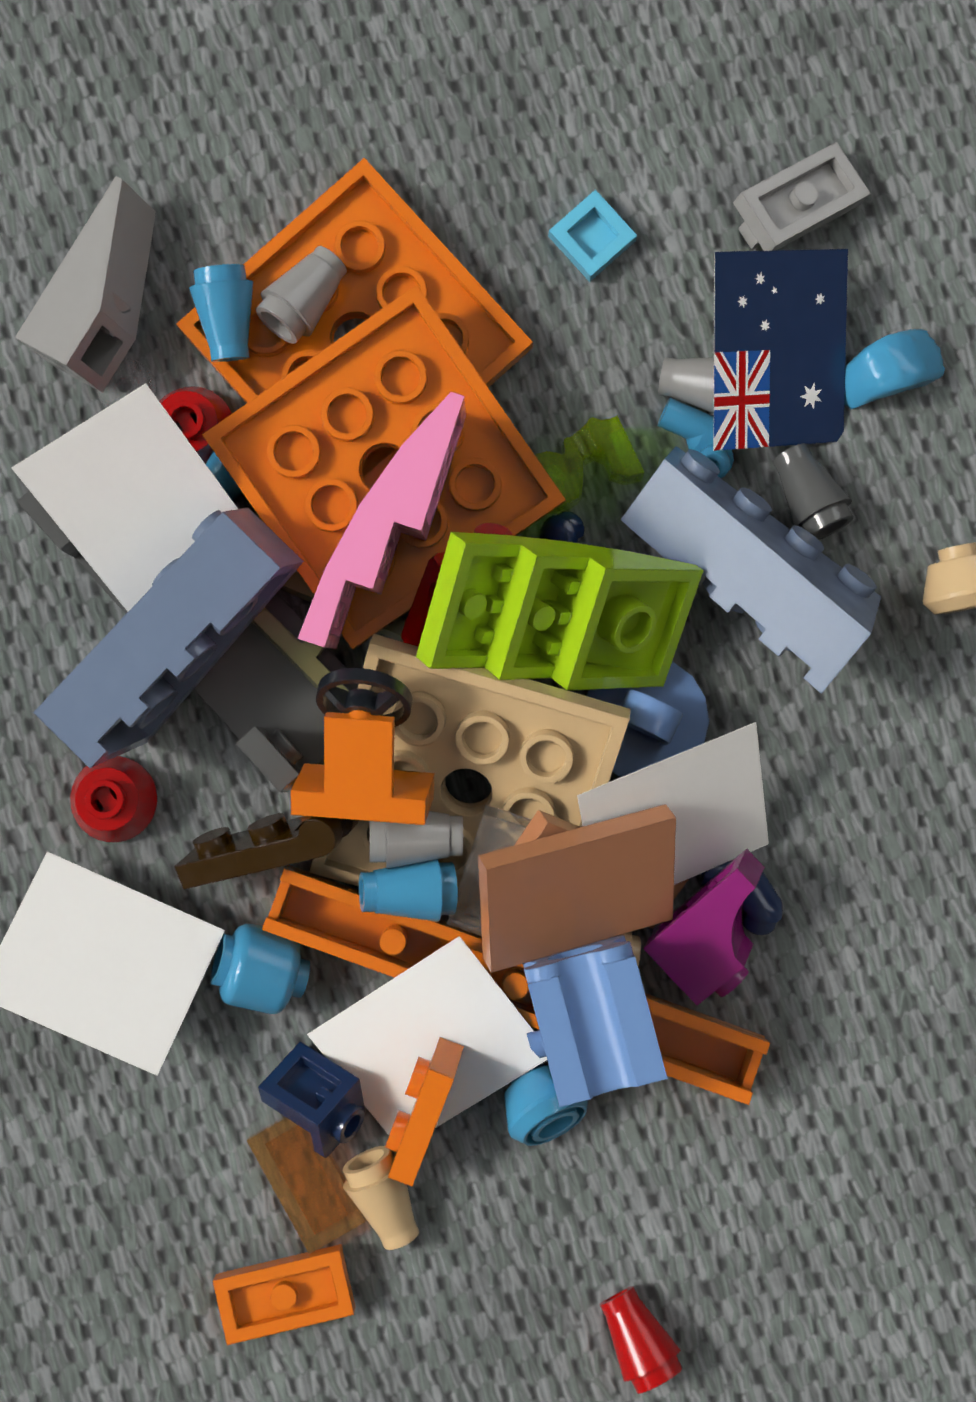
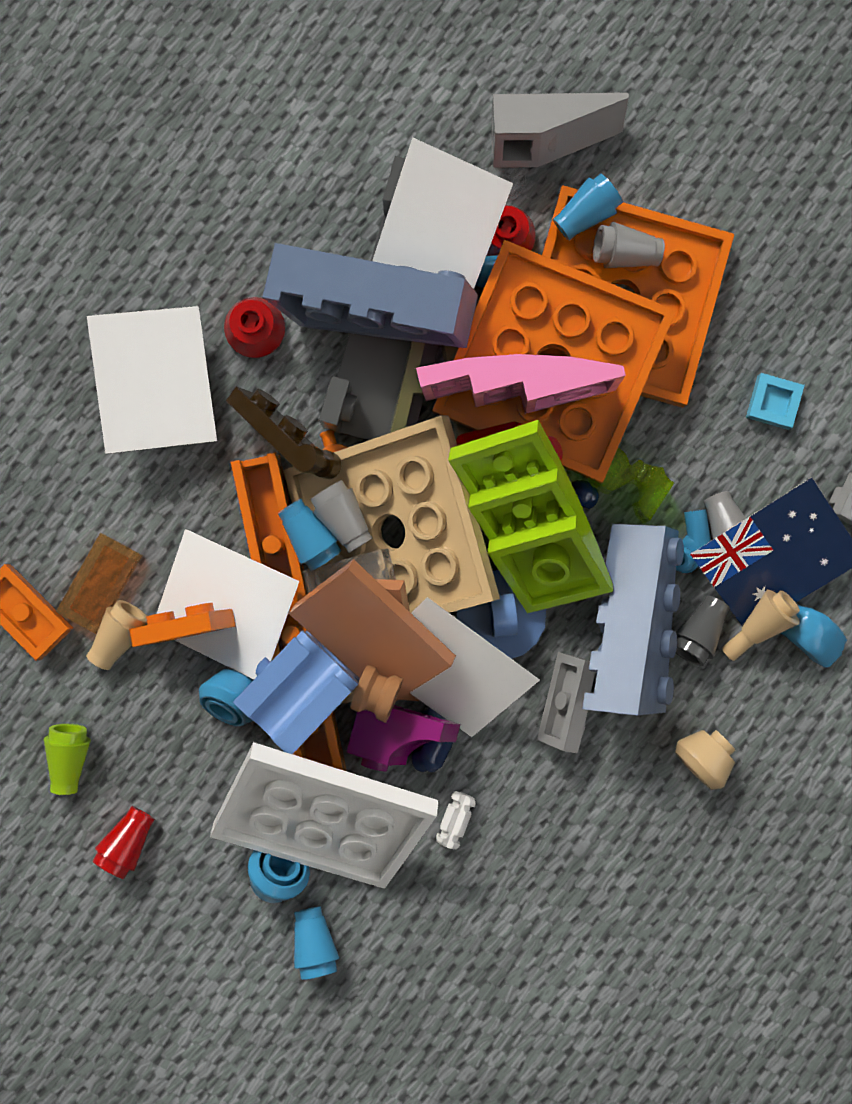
camera: 55 degrees right, 0 degrees up
(259, 970) = (205, 476): dark azure head -> none
(316, 1097) = (151, 557): dark blue bracket -> none
(359, 755) = (368, 451): orange piece -> none
(491, 1348) = (65, 755): none -> lime cone
(652, 926) = (376, 693): none -> medium nougat wheel
(758, 1083) = (322, 816): none -> white plate
(787, 1175) = (276, 878): none -> dark azure cone
(808, 718) = (563, 713): none -> light grey plate
(846, 404) = (769, 618): none -> tan cone
(855, 924) = (455, 820): none -> white piece
(900, 1186) = (313, 944): none -> dark azure cone

